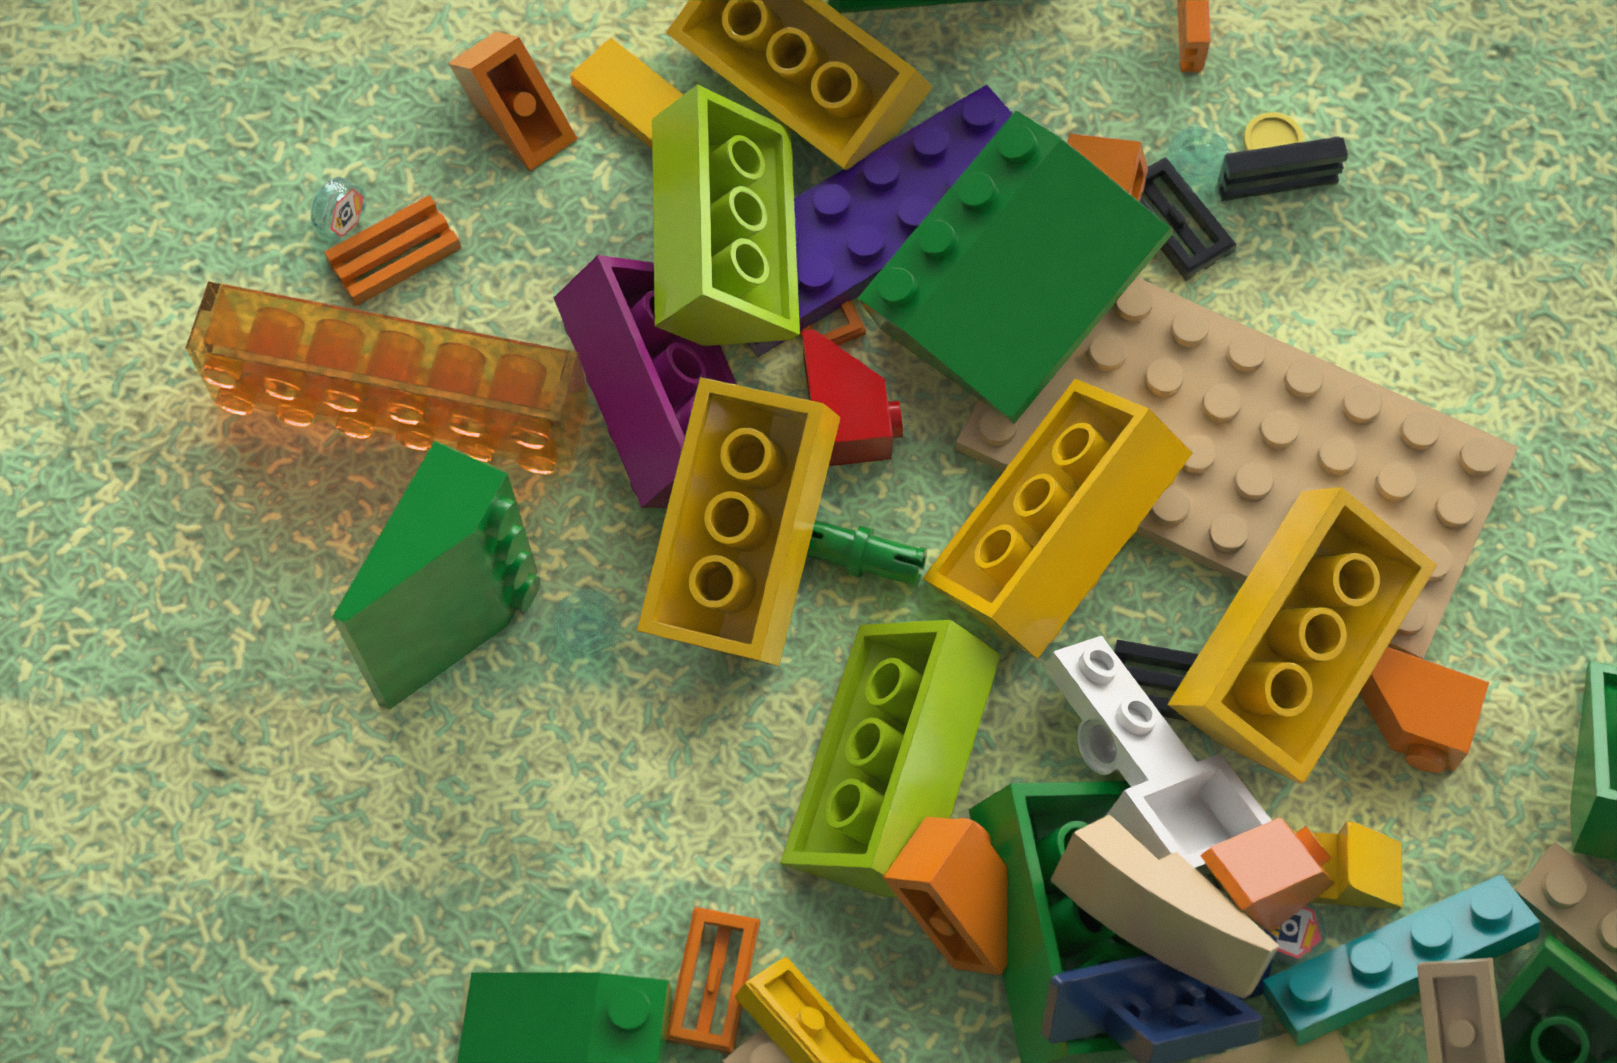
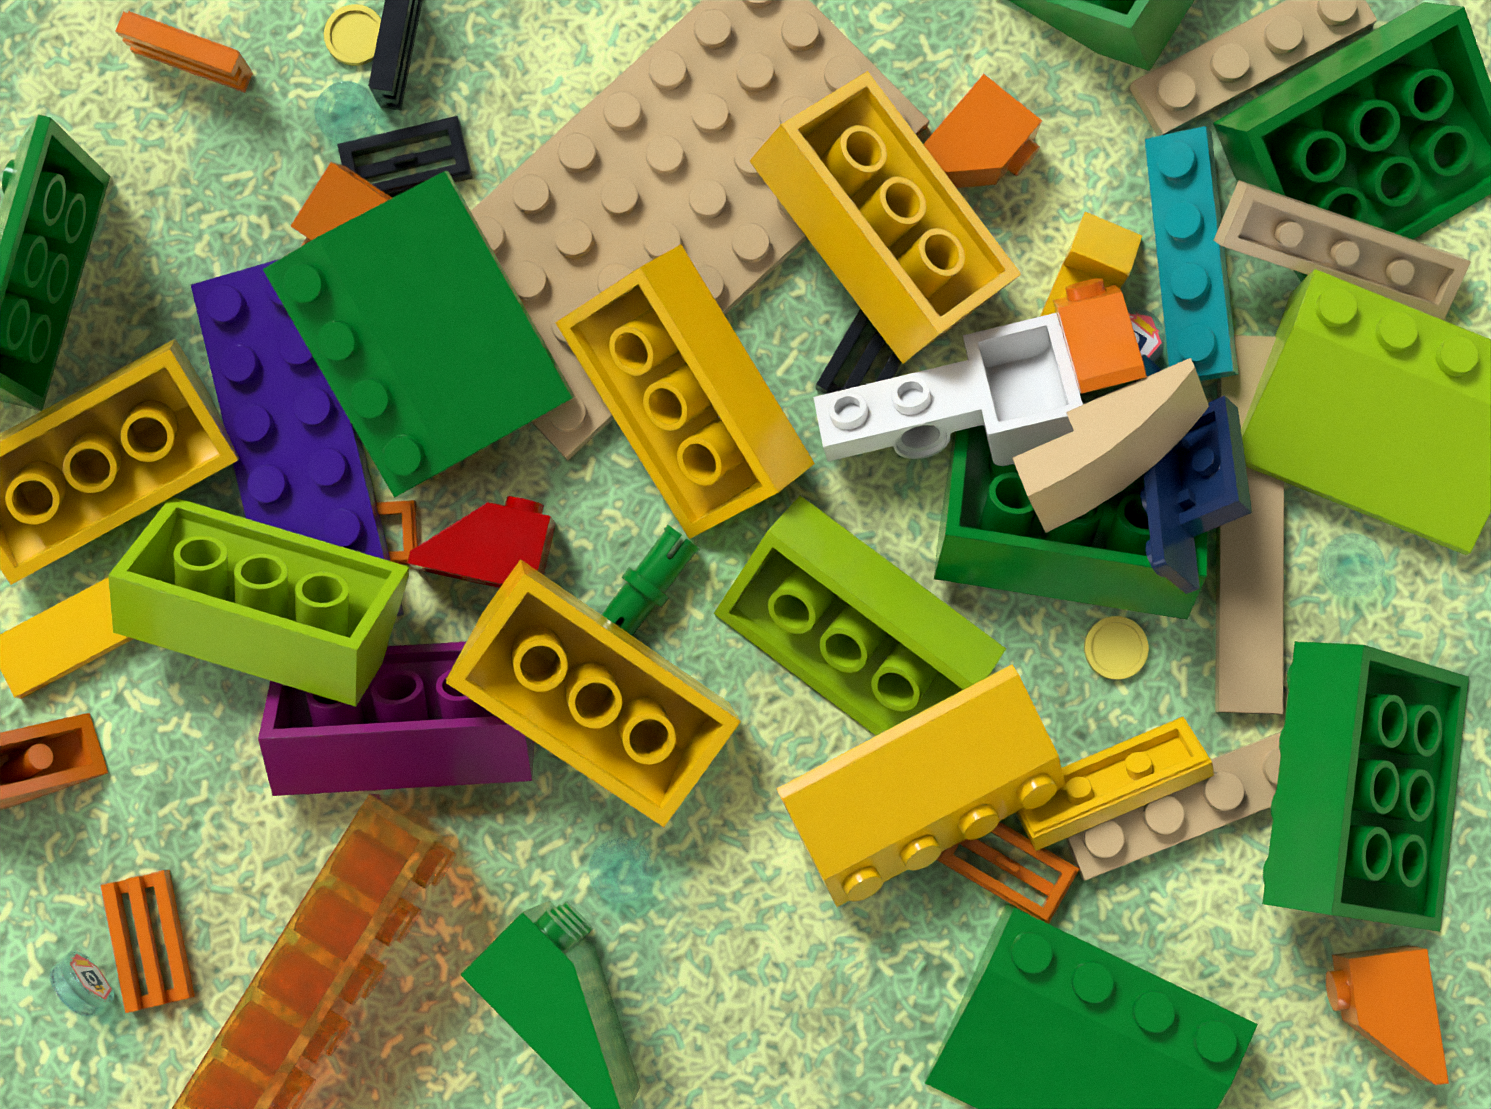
camera: 70 degrees left, 15 degrees up
(759, 855) = (924, 786): none -> yellow slope
(956, 892) = (1013, 617): orange slope -> none
(969, 1020) = (1116, 647): none -> light yellow piece

